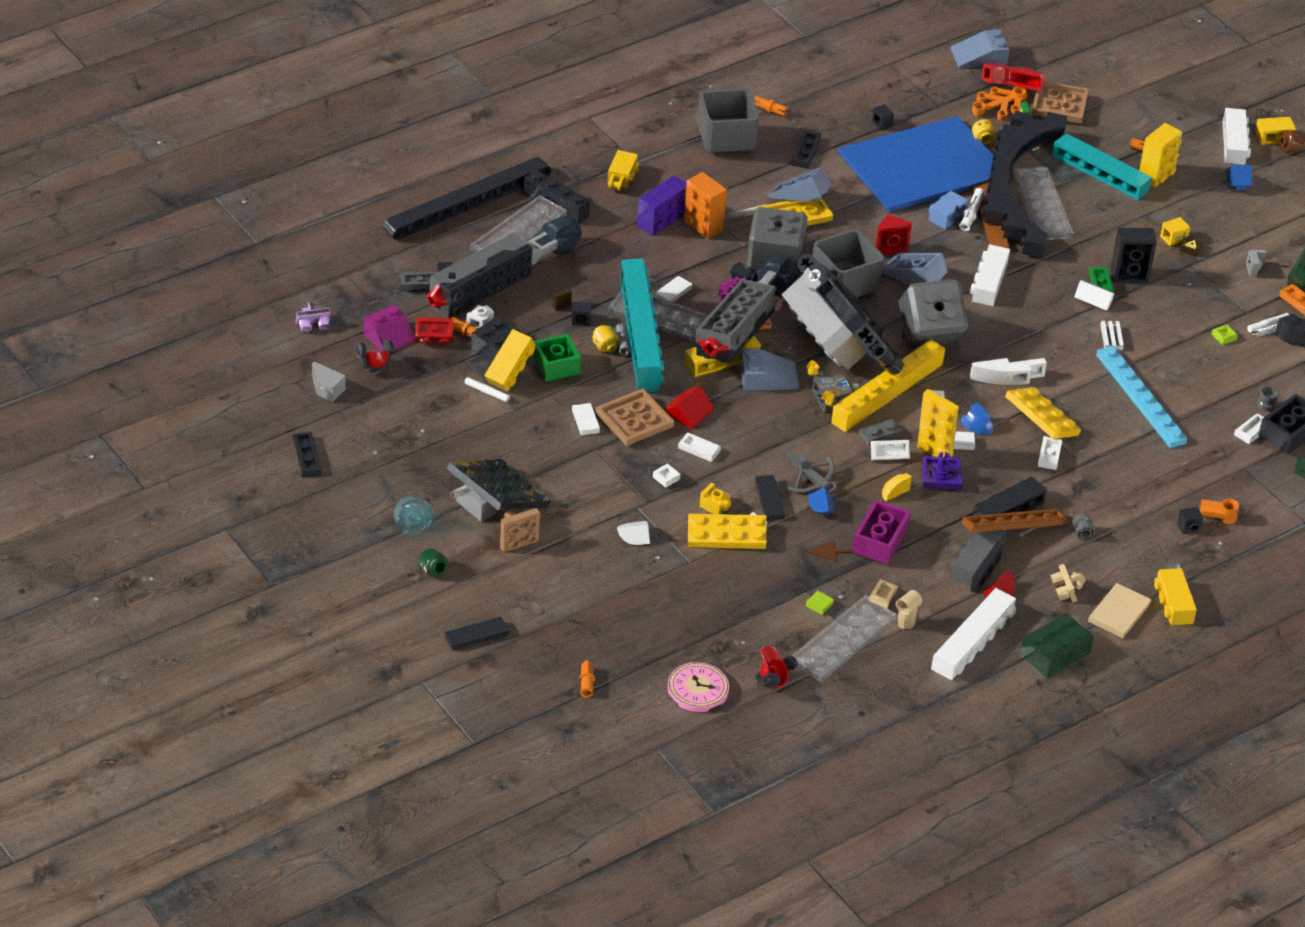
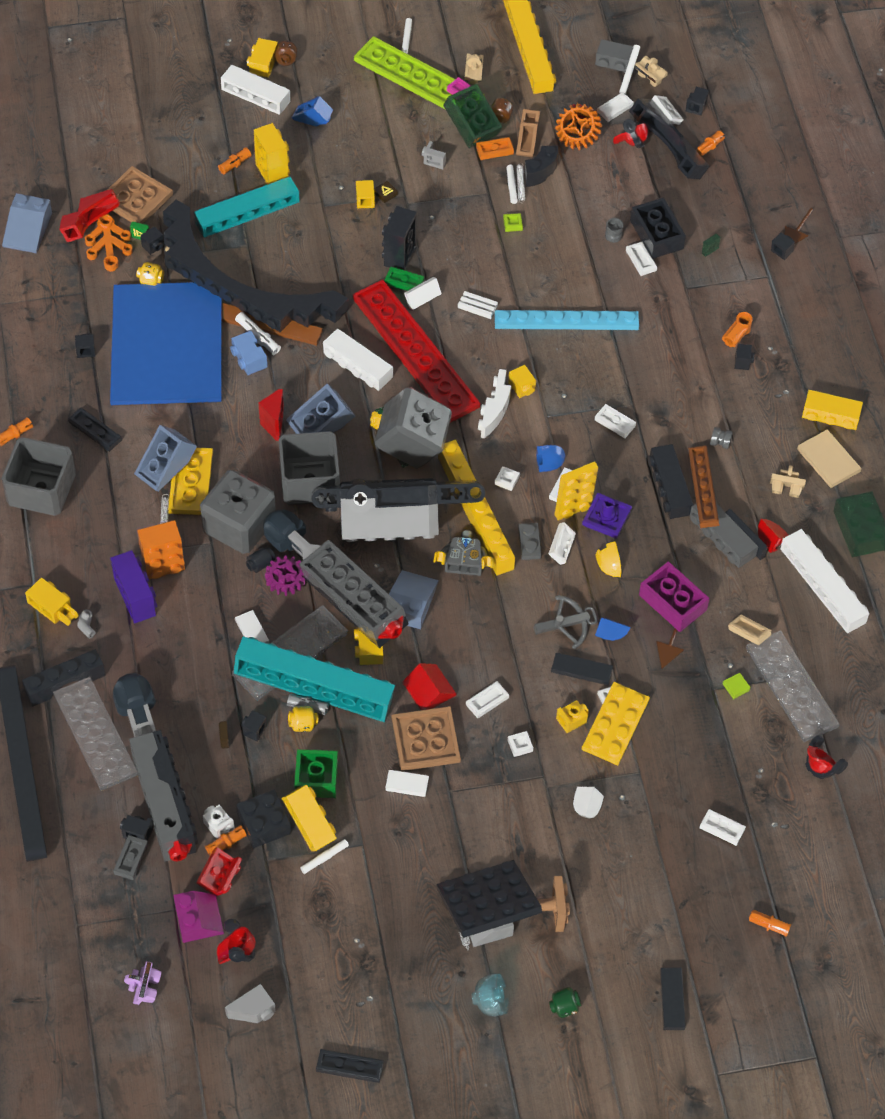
camera: 65 degrees left, 15 degrees up
(616, 196) = (84, 623): none -> light grey arm
(664, 625) = (722, 827): none -> white plate
(698, 686) = (810, 831): tile -> none
(907, 609) = (786, 617): tan piece -> none
(1029, 308) = (415, 349): none -> red plate
(1043, 202) = (272, 274): clear plate -> none
(1043, 413) = (563, 402): yellow plate -> none
(1047, 380) = (522, 381): none -> yellow brick

